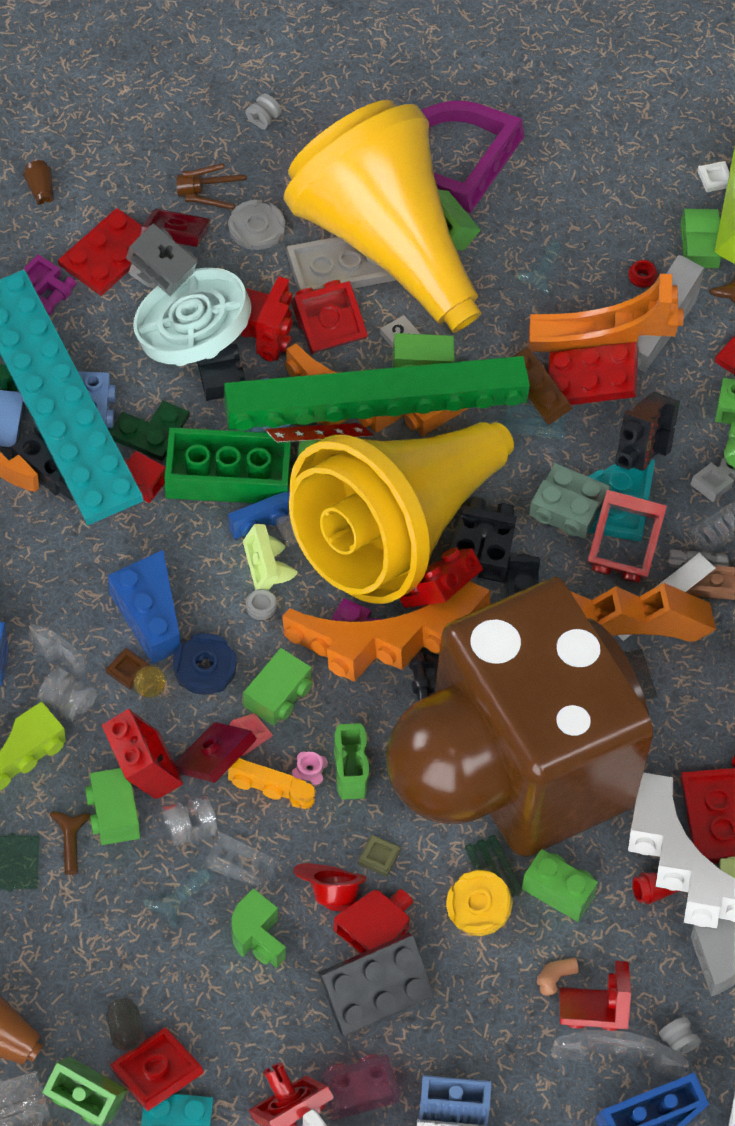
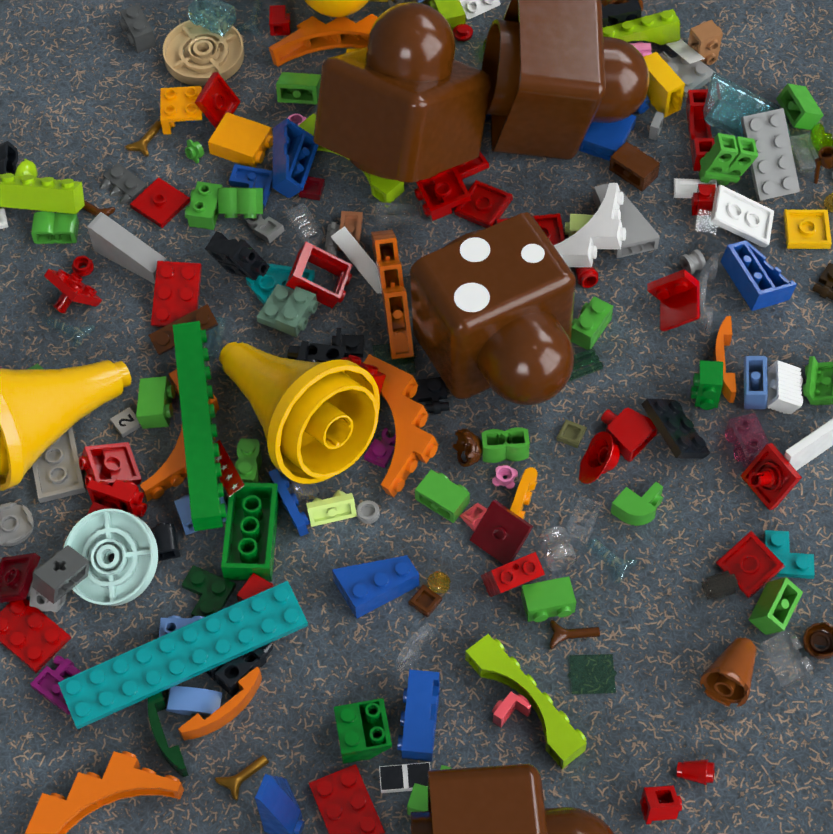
camera: 85 degrees left, 0 degrees up
(65, 694) = (456, 635): clear wheel -> none
(204, 680) = (433, 540): dark blue plate -> none
(352, 713) = (470, 444): none -> reddish brown hair
(445, 1030) = (707, 384): none -> green brick
(479, 903) = (606, 371): yellow tile -> none
(547, 1069) = (724, 339): none -> orange slope
(553, 971) = (652, 332): nougat arm -> none
(596, 258) = (71, 289): none -> red plate
(647, 314) = (145, 268): orange arch -> none

